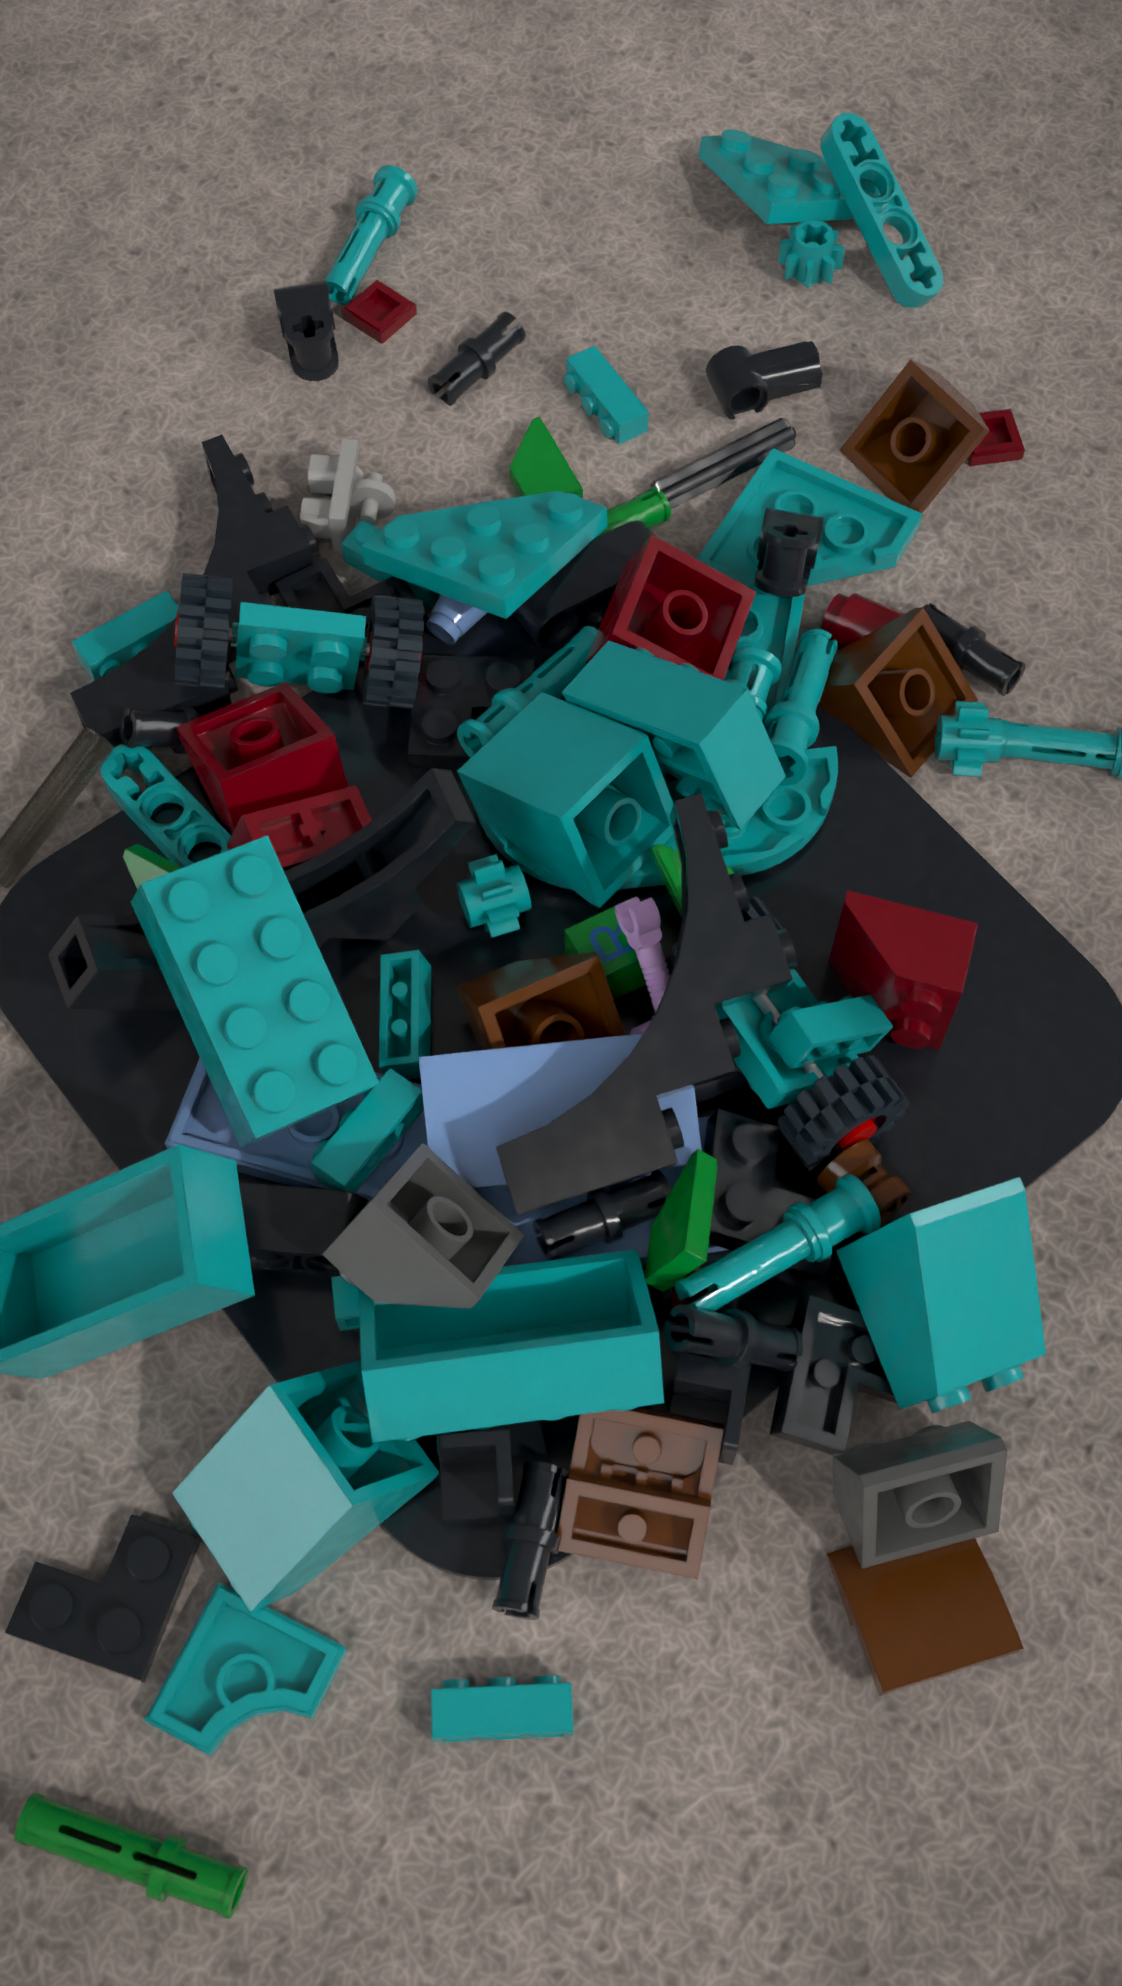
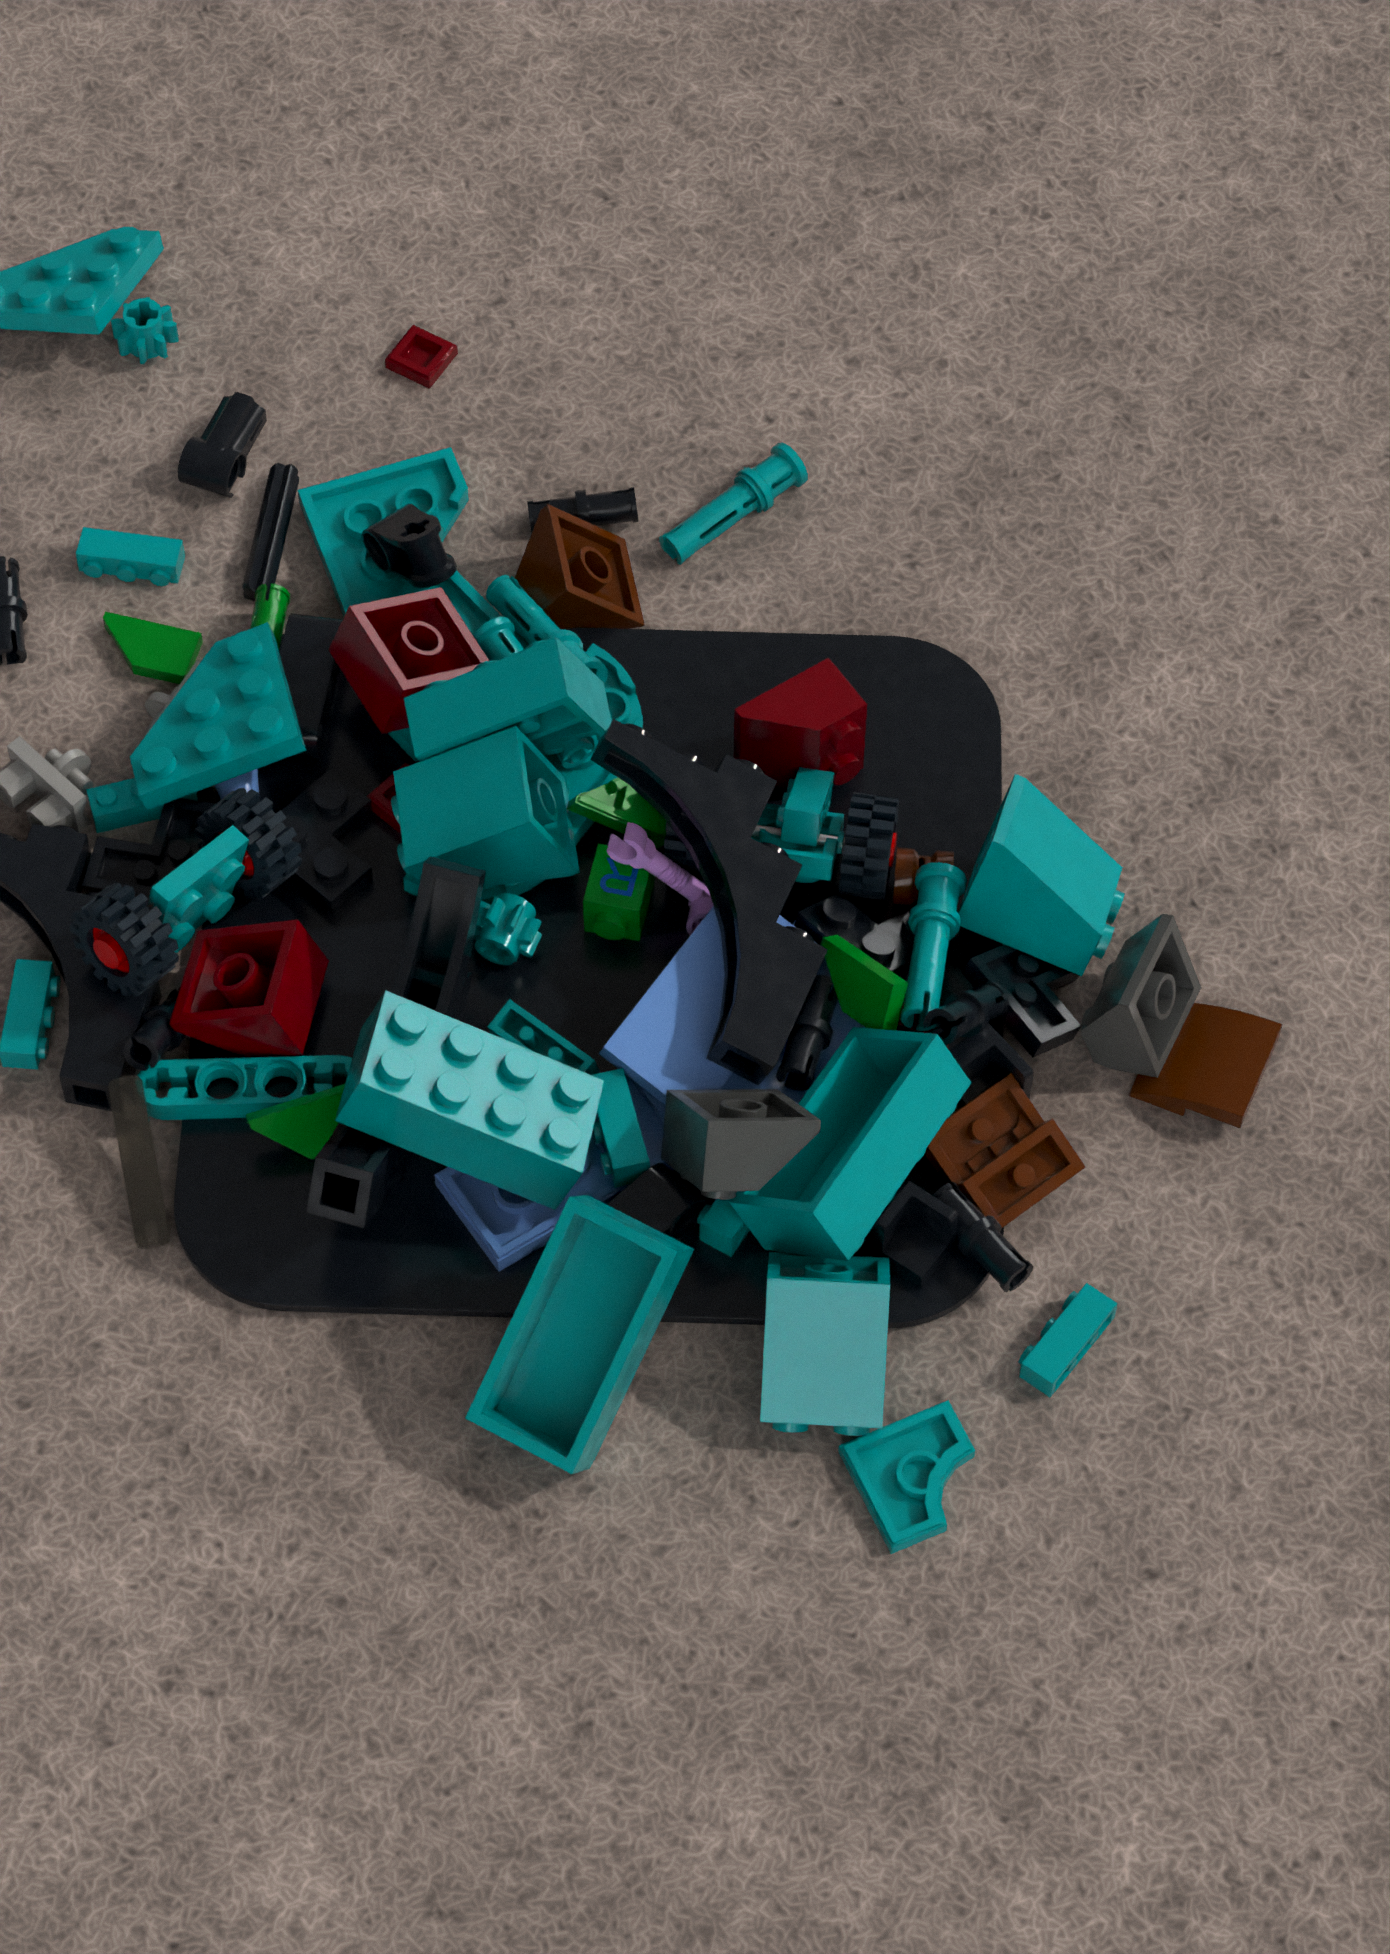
camera: 50 degrees left, 5 degrees down
(115, 1621) = (807, 1523): black plate -> none
(217, 1883) = (993, 1596): green pin -> none
(305, 826) = (347, 1002): dark red hinge -> none
(541, 1002) = (620, 960): reddish brown slope -> none
(549, 678) = (371, 805): teal pin -> none
(855, 617) = (498, 553): dark red brick -> none
(856, 154) = (164, 262): teal beam -> none
(916, 436) = (386, 399): reddish brown slope -> none
(968, 739) = (657, 566): teal gear -> none

